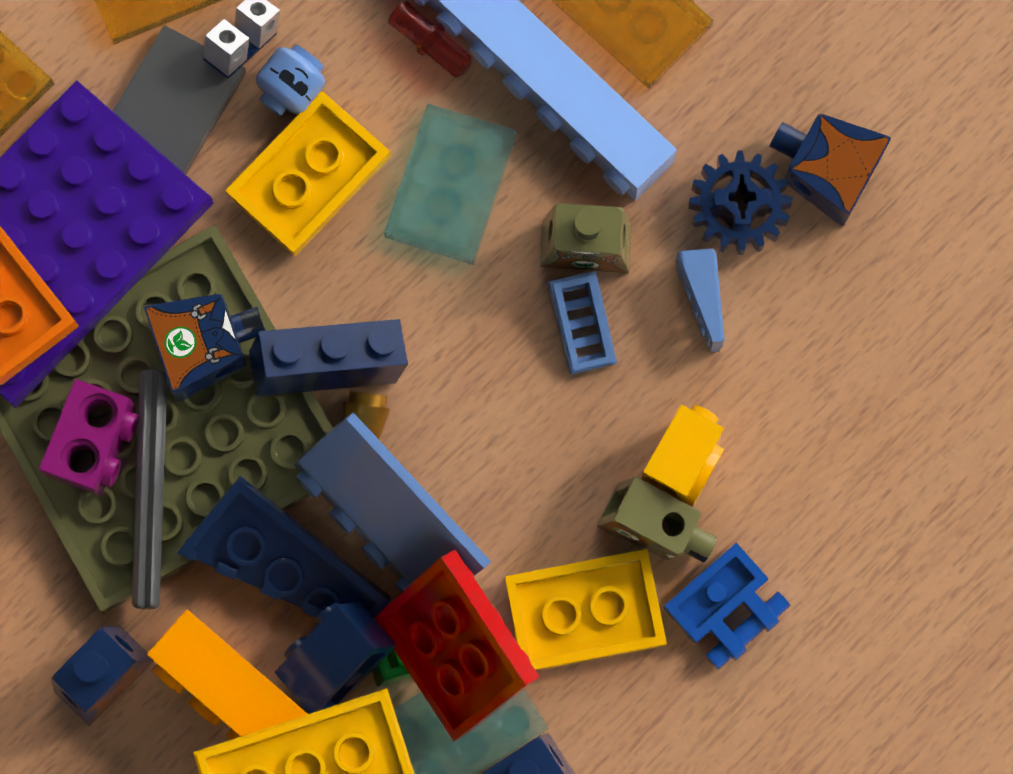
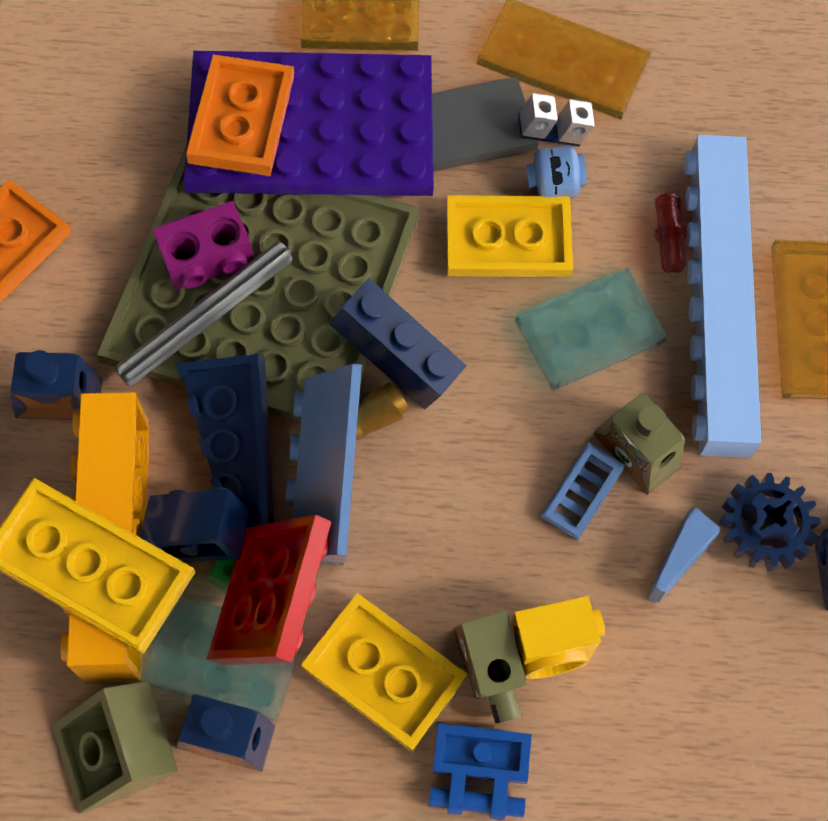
camera: 45 degrees right, 10 degrees down
(200, 340) = (330, 257): torso -> none

